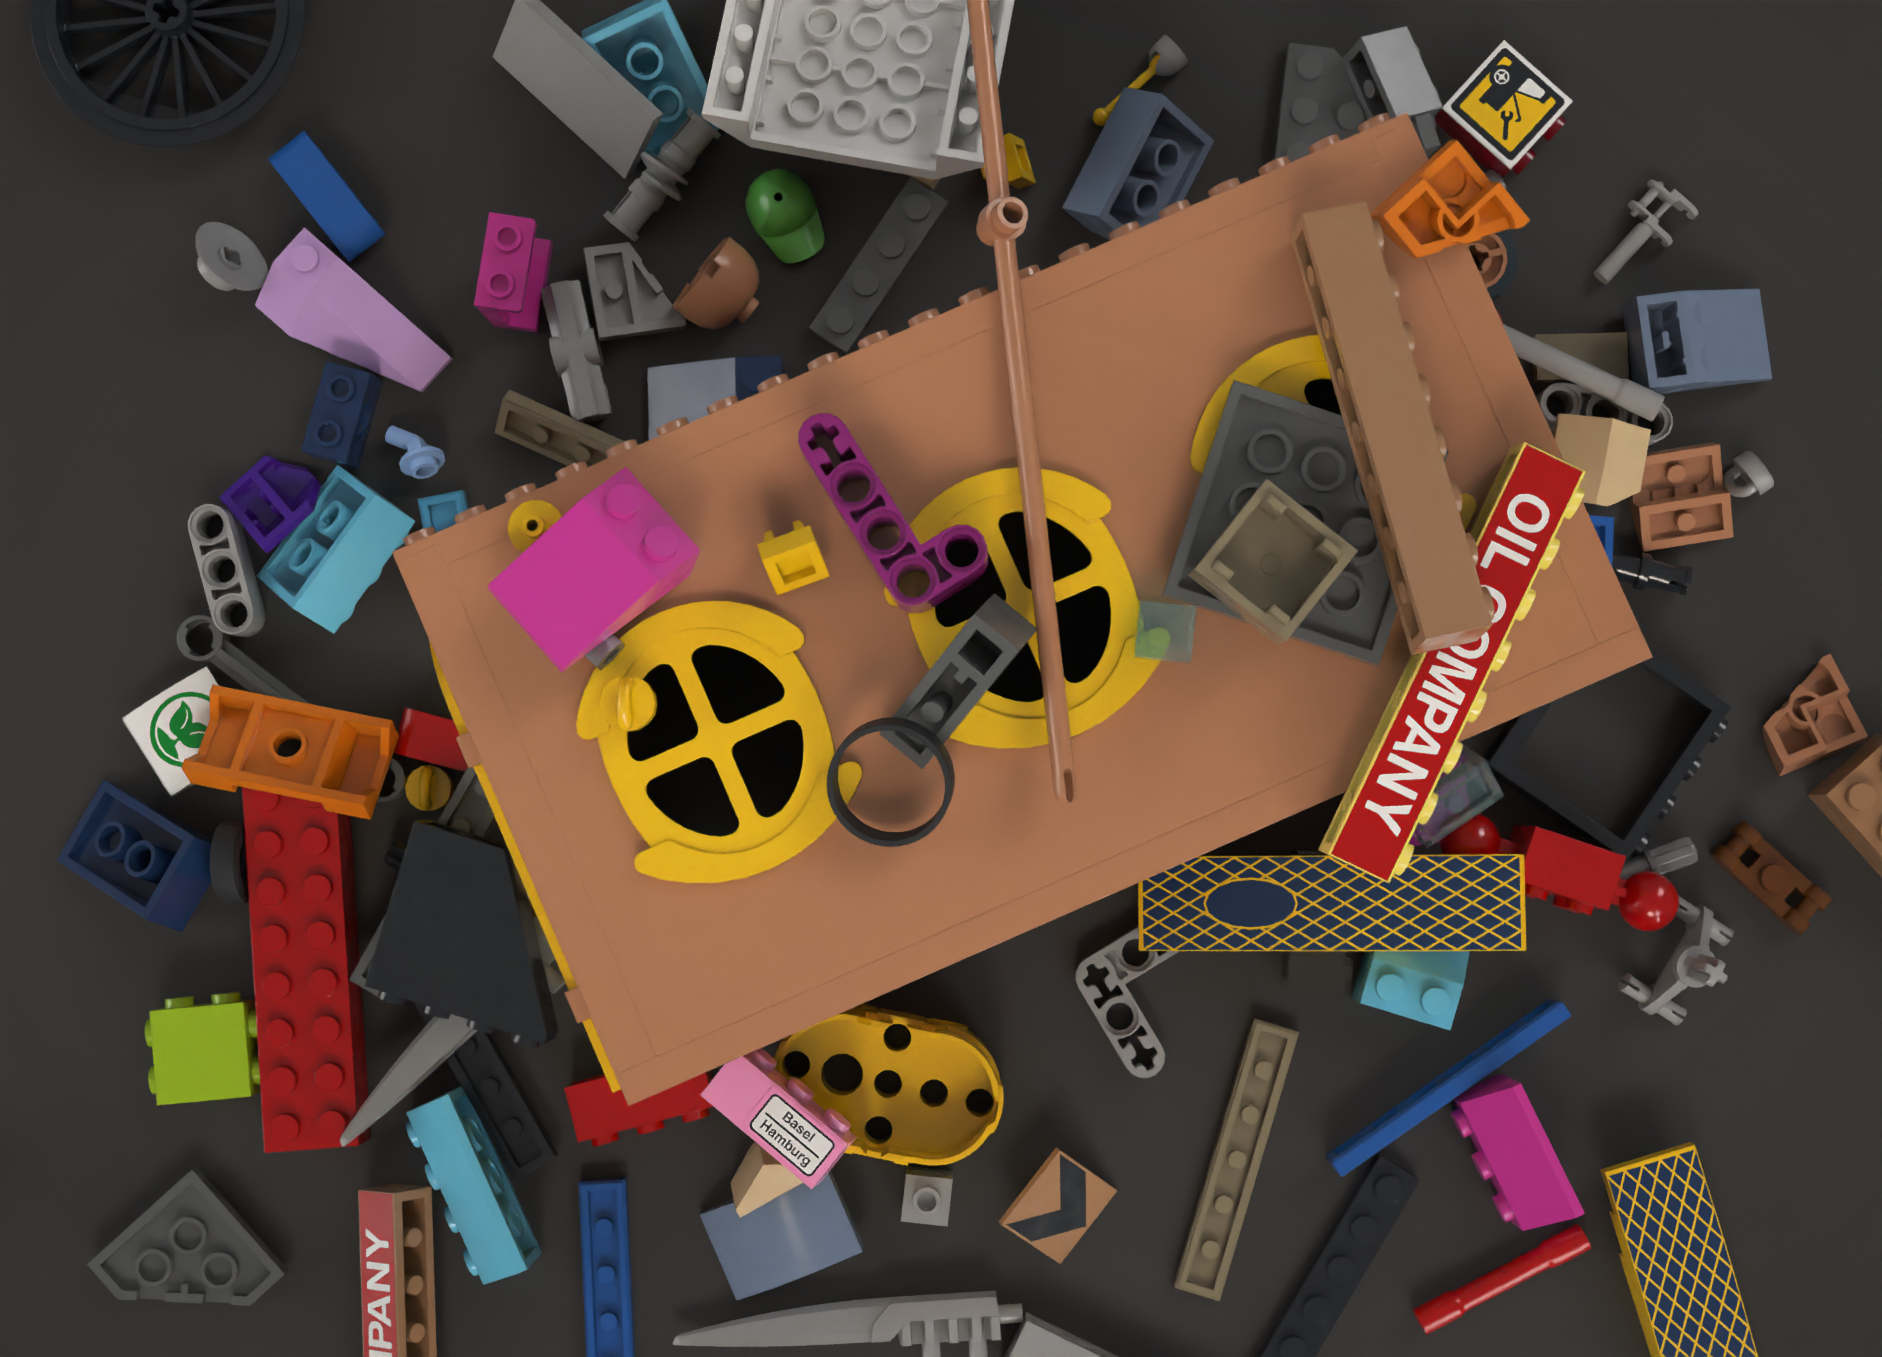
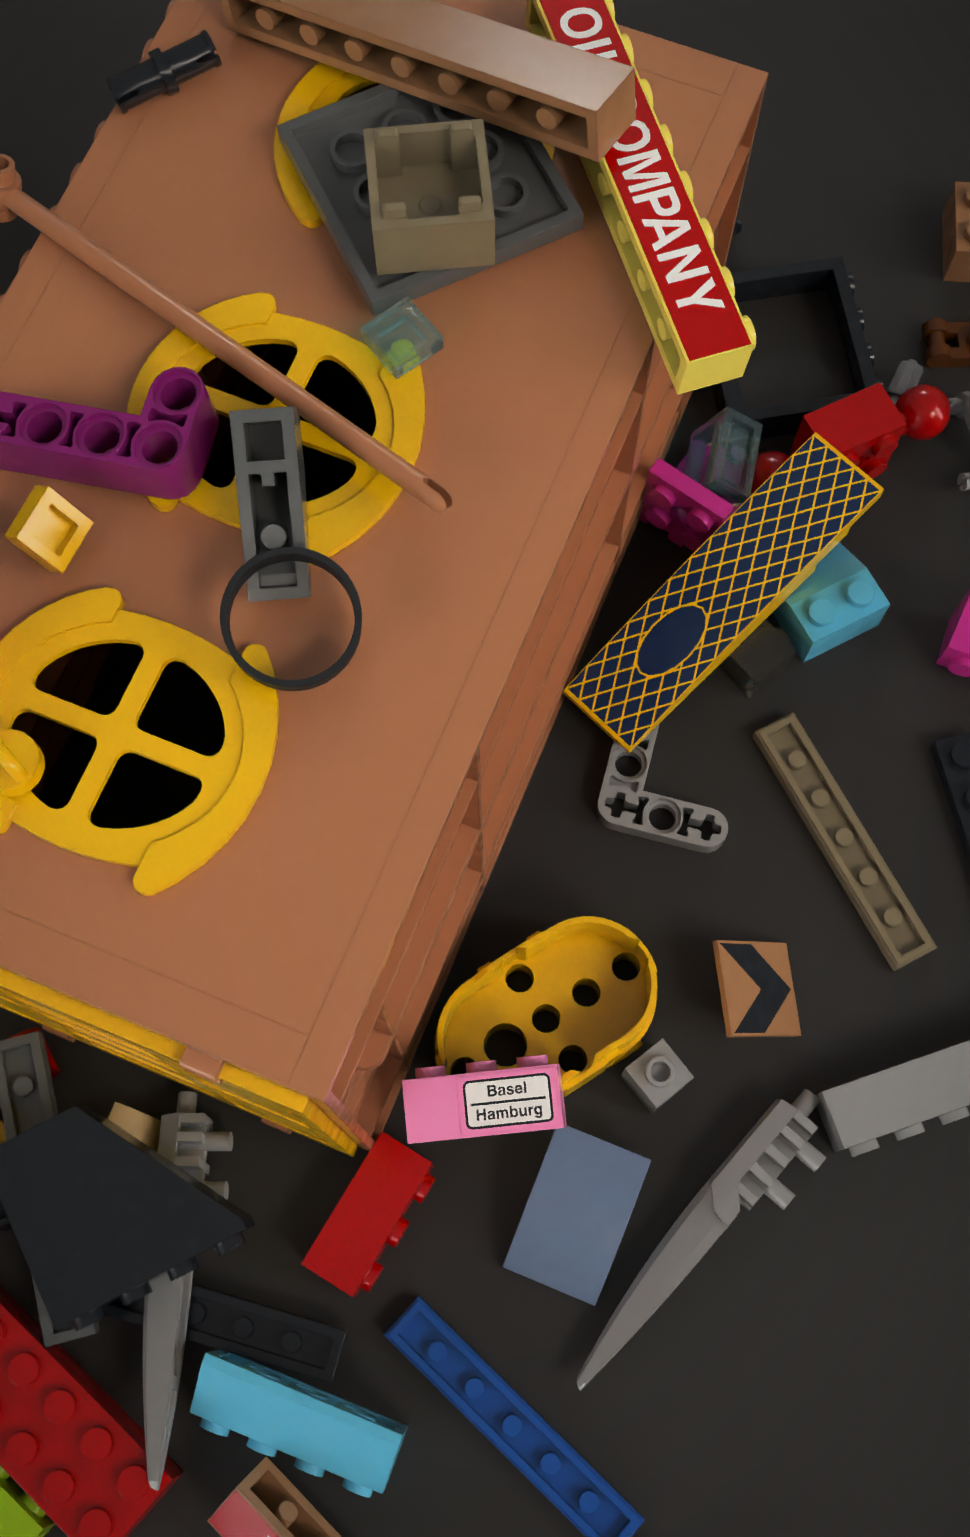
camera: 45 degrees left, 15 degrees down
(760, 1180) = (521, 1172): tan slope -> none
(1203, 239) = (163, 71): none -> black pin
(1447, 1086) = (926, 654): blue tile -> none
(1813, 721) = (899, 233): nougat slope -> none

